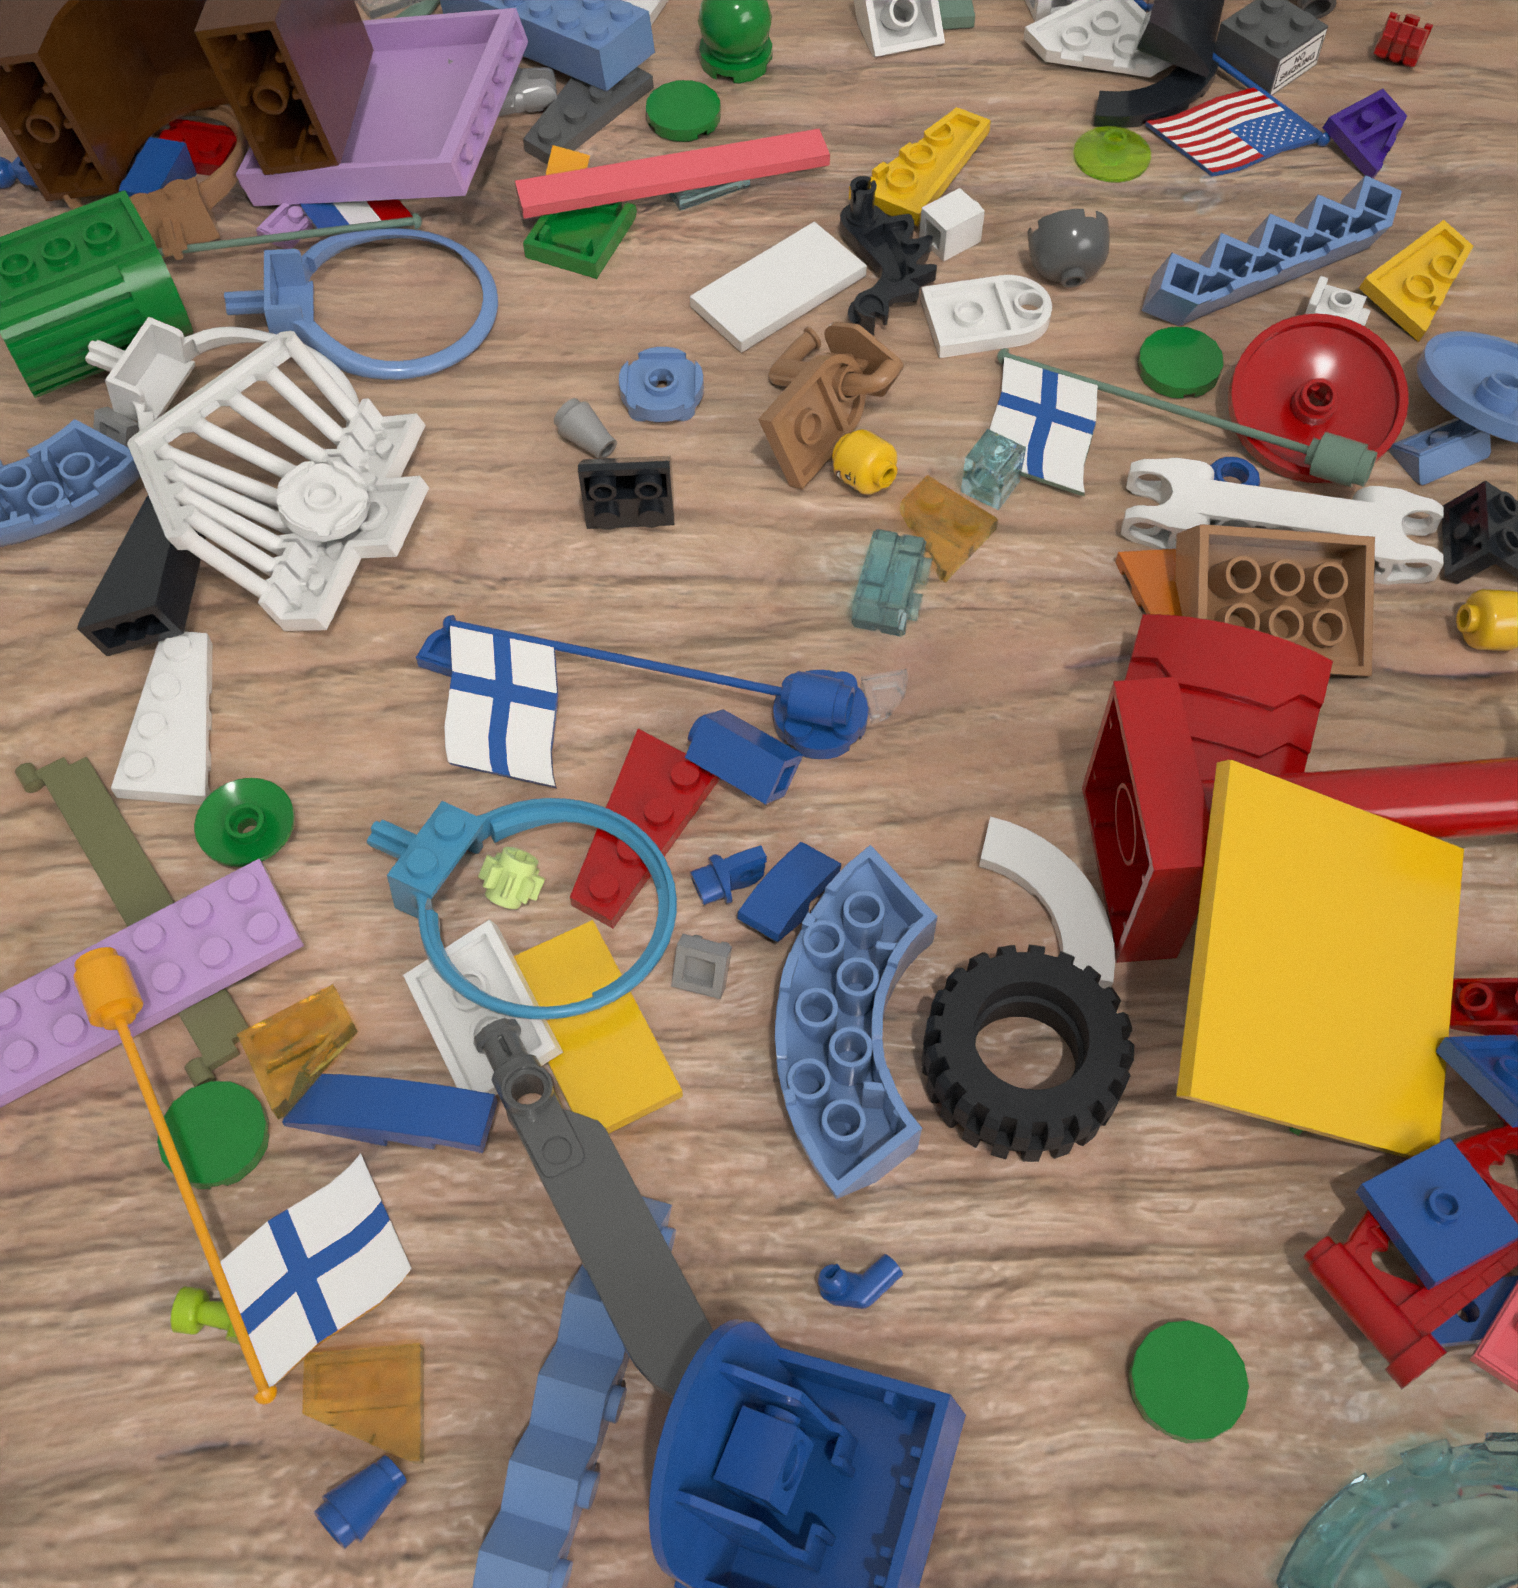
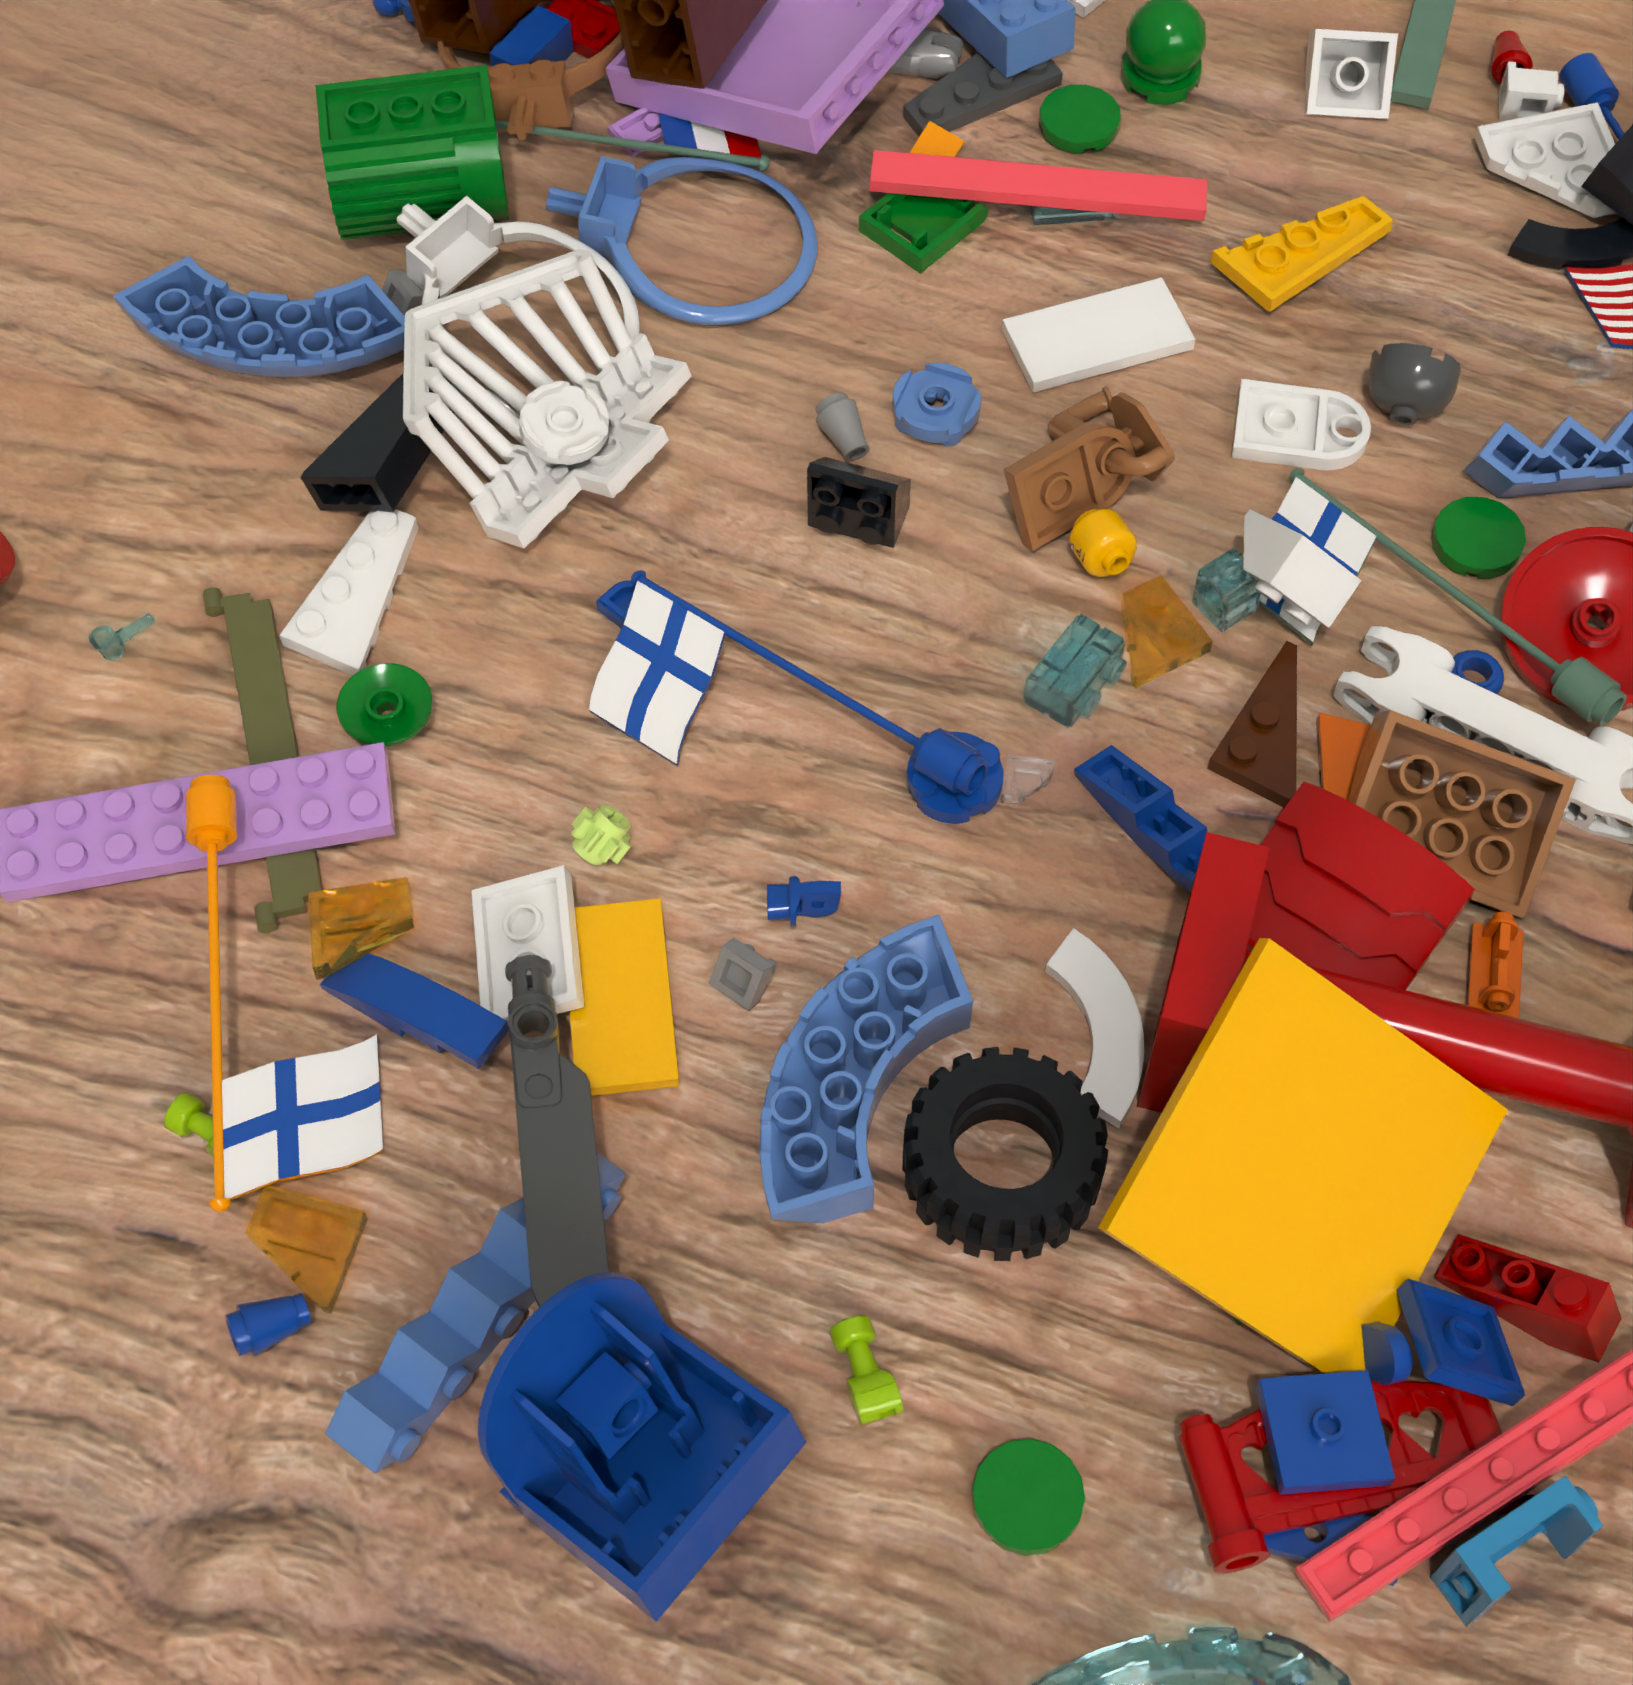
camera: 20 degrees right, 0 degrees up
(217, 1133) = (261, 973): green tile -> none
(434, 852) = (539, 786): dark azure brick -> none
(659, 795) = (746, 821): red wing -> none
(743, 755) = (860, 792): blue brick -> none
(786, 891) = (848, 932): blue slope -> none
(857, 1289) = (762, 1307): blue arm -> none
(889, 249) = (1228, 333): black animal -> none
(953, 222) = (1302, 321): white brick -> none
(998, 1334) = (871, 1390): none -> lime leg
(1011, 691) = (1145, 812): none -> blue slope
(1053, 430) = (1295, 571): none -> white slope
(1078, 592) = (1262, 740): none -> reddish brown wing
(1112, 154) = (1513, 292): clear neon green dish -> none
(1370, 724) = (1496, 965): none -> orange hinge
(1454, 1114) = (1386, 1353): none -> blue tile

